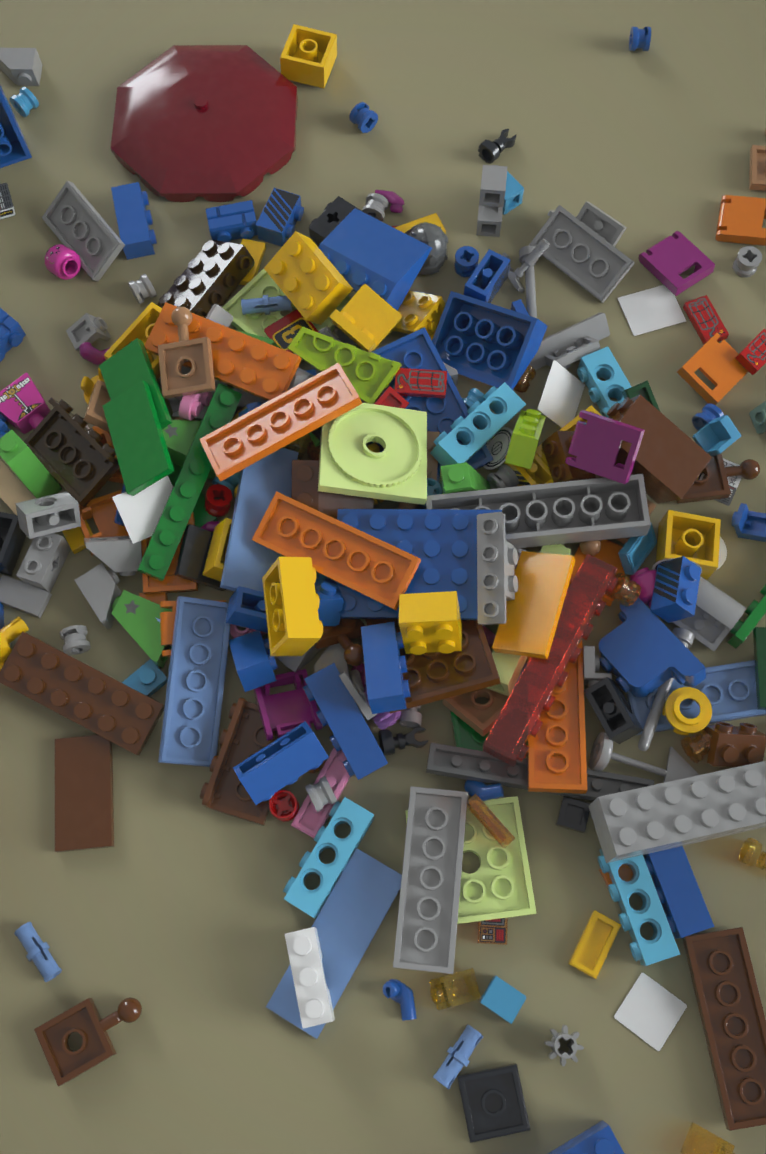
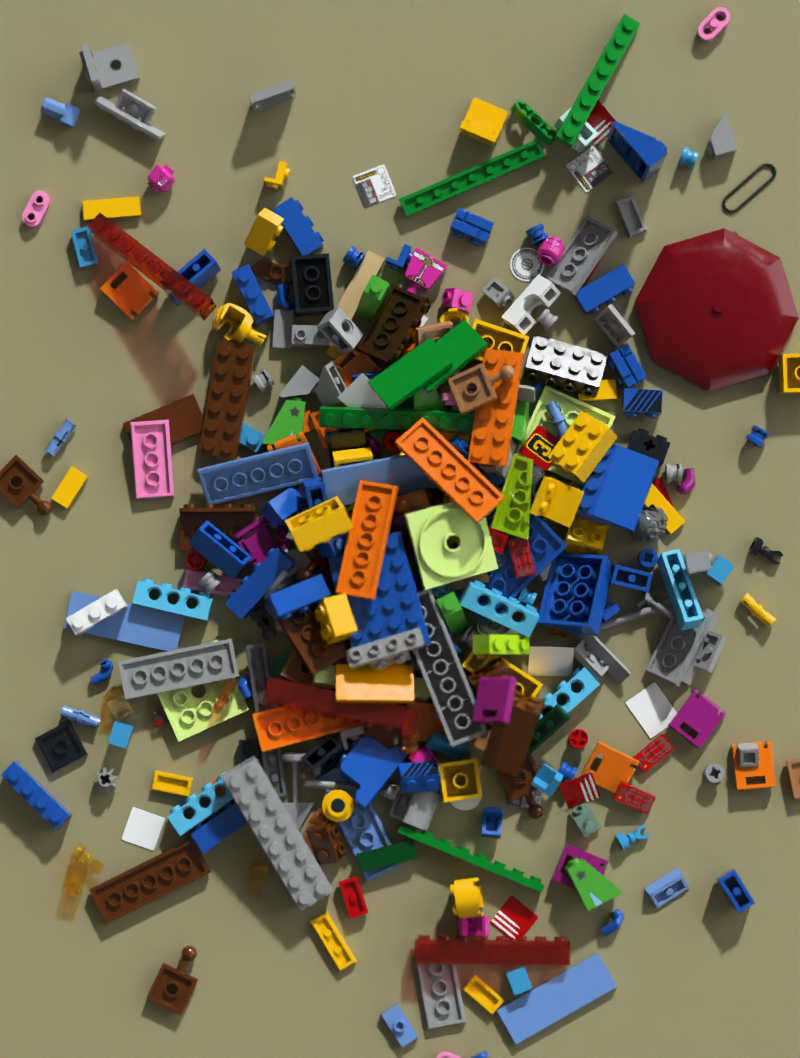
camera: 70 degrees right, 15 degrees up
(37, 271) = (536, 233): none -> blue wheel
(55, 176) = (631, 216): none -> light grey tile
(69, 297) = (526, 264): none -> white sticker
(70, 379) = (457, 299): none -> dark pink bracket
(77, 63) = (755, 193): none -> black piece
(92, 354) = (481, 307): magenta arm -> none
(105, 284) = (537, 293): none -> white arch
(114, 961) = (69, 487): none -> yellow tile
(120, 824) = (152, 459): none -> bright pink tile
(179, 216) = (614, 326): none -> light grey bracket
(518, 227) = (680, 590): none -> medium azure brick
(564, 169) = (757, 610): none -> yellow pin
(666, 389) = (578, 738): none -> red wheel
(668, 1126) = (79, 853): none -> clear yellow piece
(735, 217) = (748, 754): none -> light grey slope
(736, 407) = (580, 790): none -> red sticker

